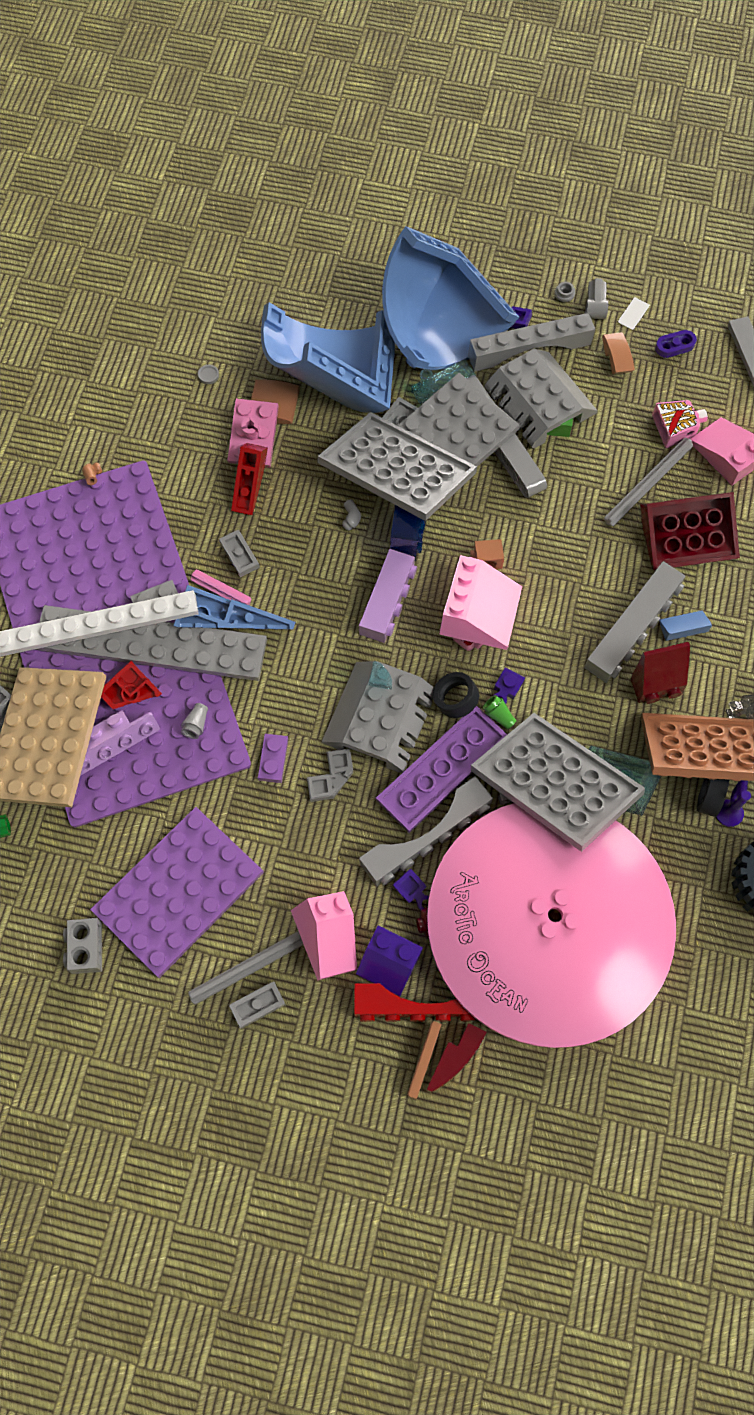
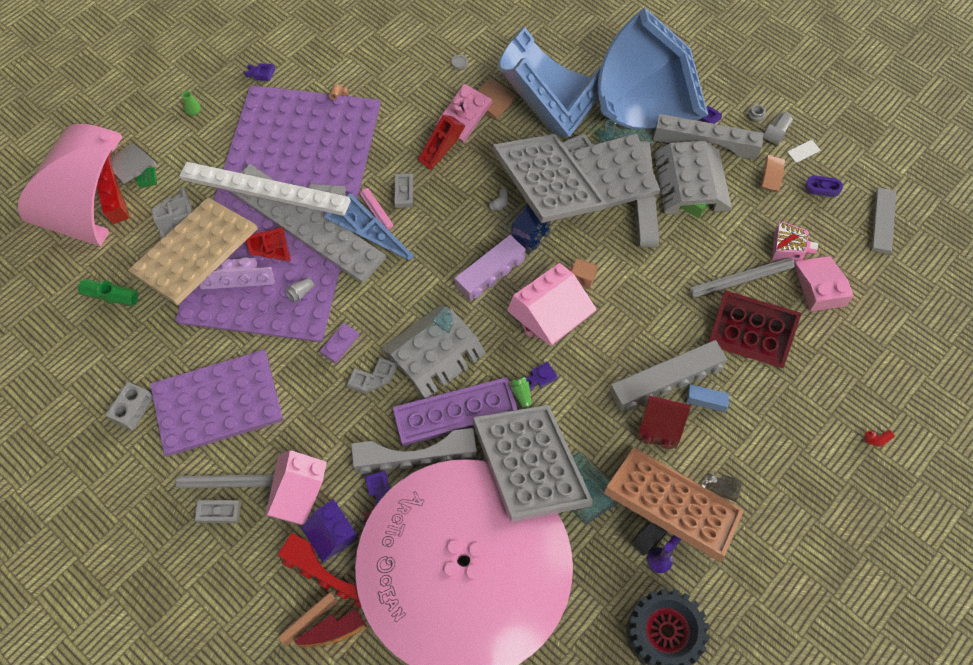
camera: 30 degrees right, 5 degrees down
(447, 683) = (501, 371): black tyre -> none

